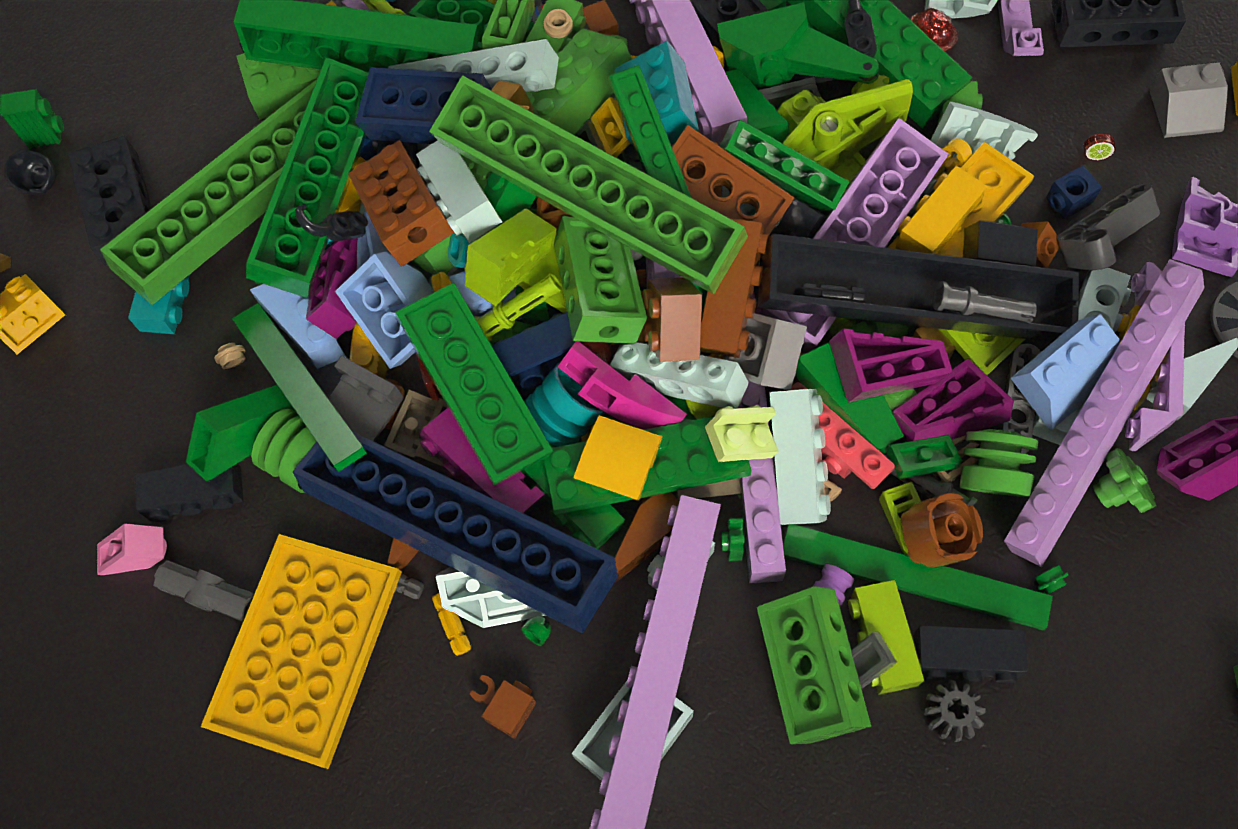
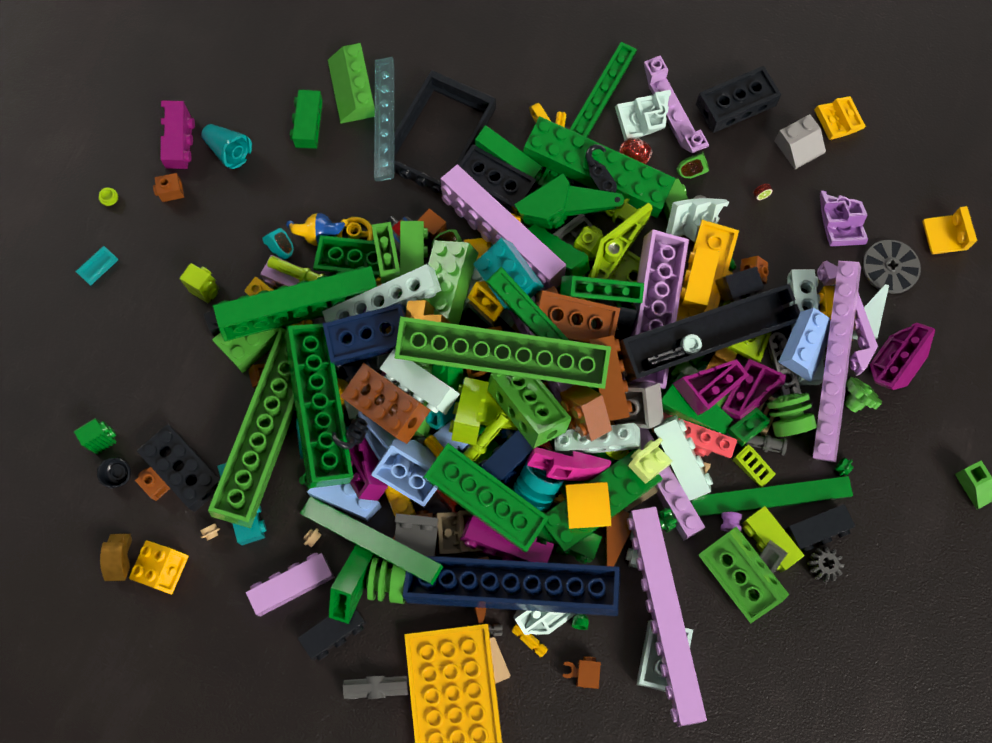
camera: 30 degrees left, 5 degrees up
(66, 206) = (152, 483): none -> dark orange brick
(106, 294) = (210, 532): none -> tan plate
(130, 549) = (316, 684): bright pink slope -> none
(161, 403) = (290, 584): none -> lavender brick
(388, 636) = (499, 666): none -> tan slope
(557, 17) = (416, 237): tan plate -> none
(881, 292) = (691, 344): none -> light aqua tile
(941, 530) = (778, 467): dark orange brick -> none
(963, 153) = (692, 234): yellow beam -> none
(968, 301) = (740, 328): dark grey pin -> none
(1009, 76) = (693, 166): none -> rock
(1080, 184) = (764, 221): dark blue brick -> none
(1092, 239) = (783, 254): dark grey beam -> none

